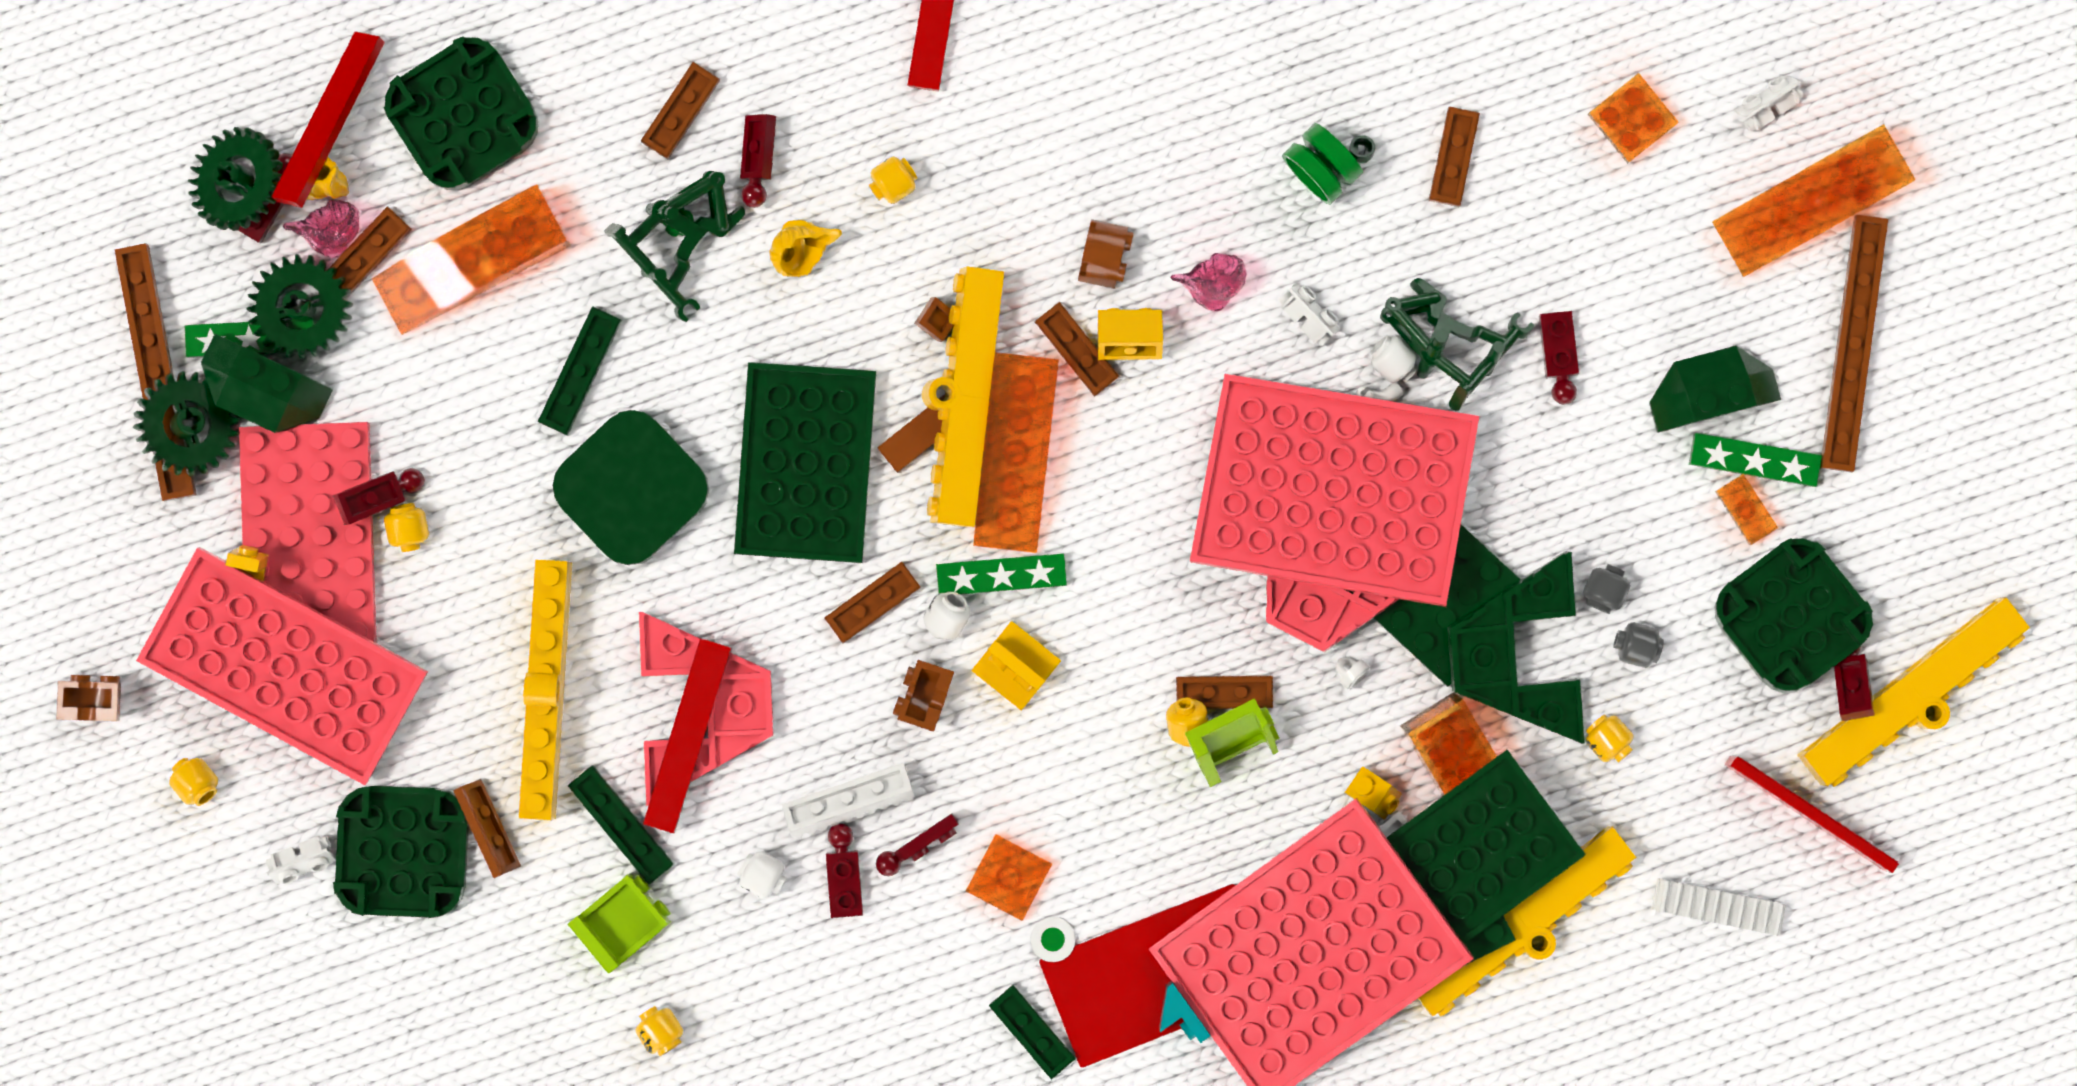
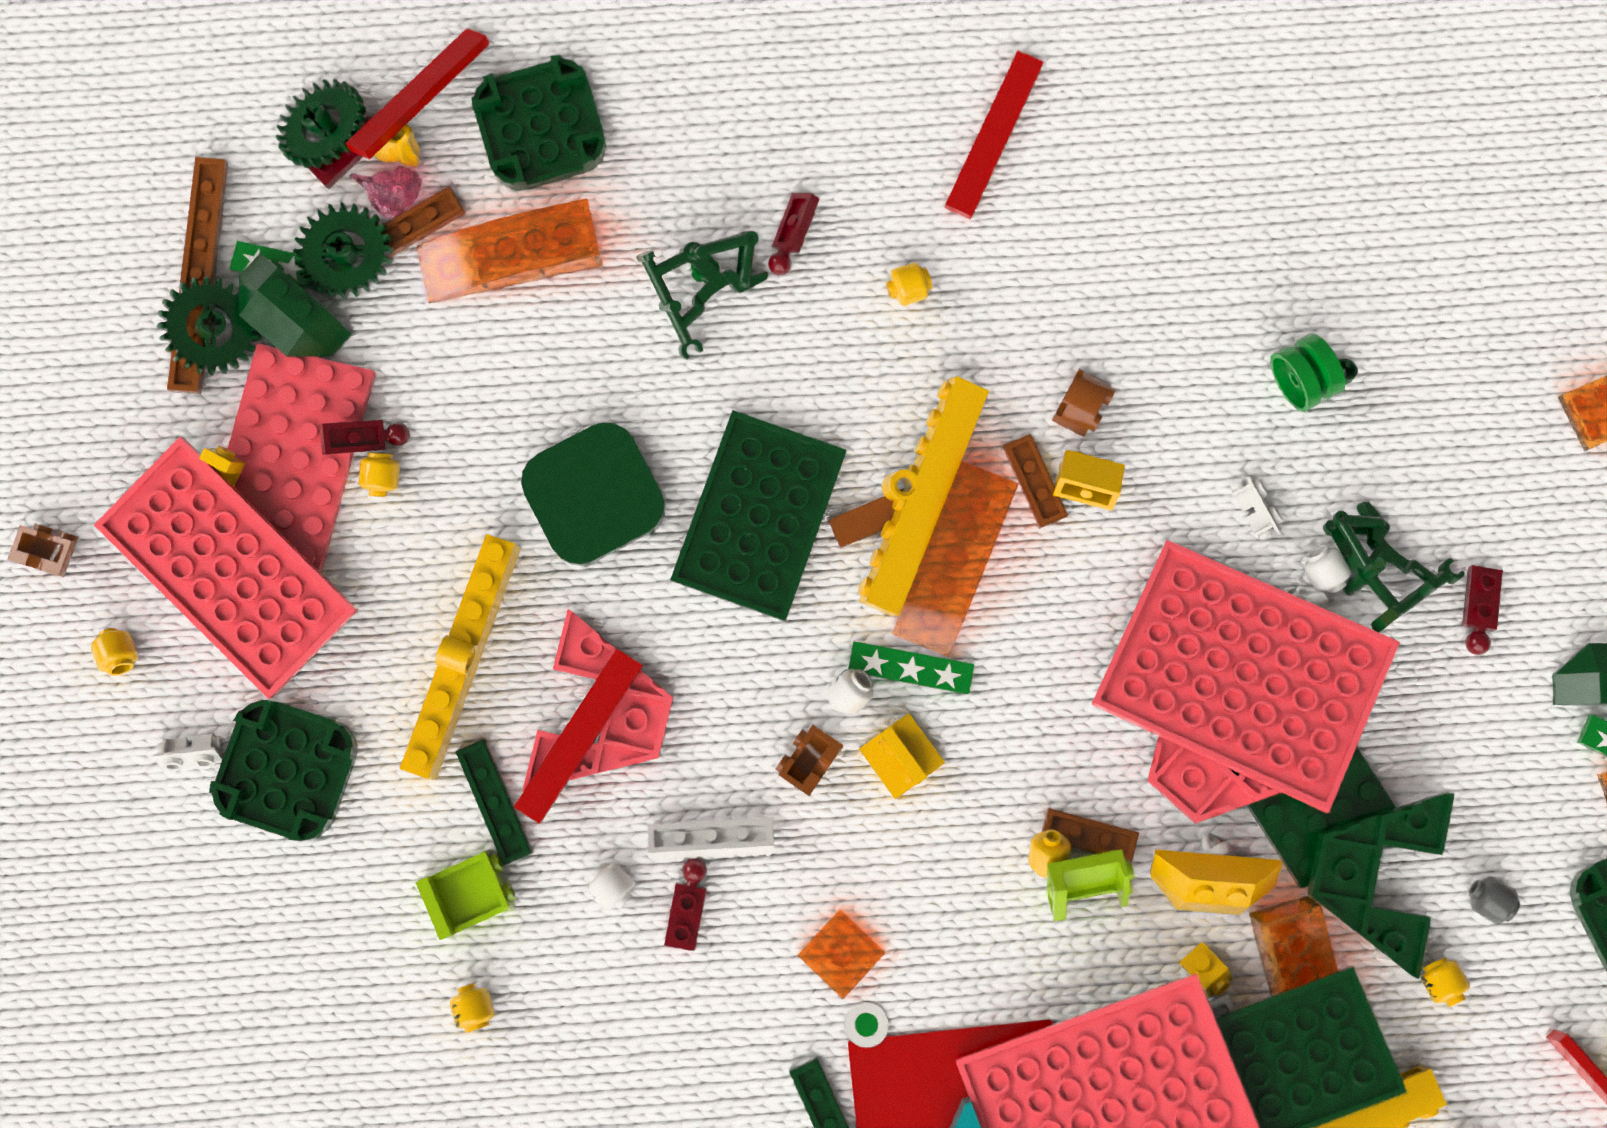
camera: 20 degrees right, 5 degrees down
(487, 828) = (369, 770): dark orange tile -> none
(579, 371) = (578, 378): dark green tile -> none
(680, 110) = (734, 173): dark orange tile -> none
(800, 247) = (808, 320): yellow hair -> none
(872, 602) = (784, 660): dark orange tile -> none
(889, 862) = (734, 908): dark red plate -> none
(935, 319) = (913, 419): dark orange plate -> none
(1214, 280) = (1179, 453): clear pink hair -> none
(1356, 703) = (1213, 881): none -> yellow wedge
(1454, 156) = (1425, 402): dark orange tile -> none
(1606, 589) = (1475, 838): dark grey head -> none

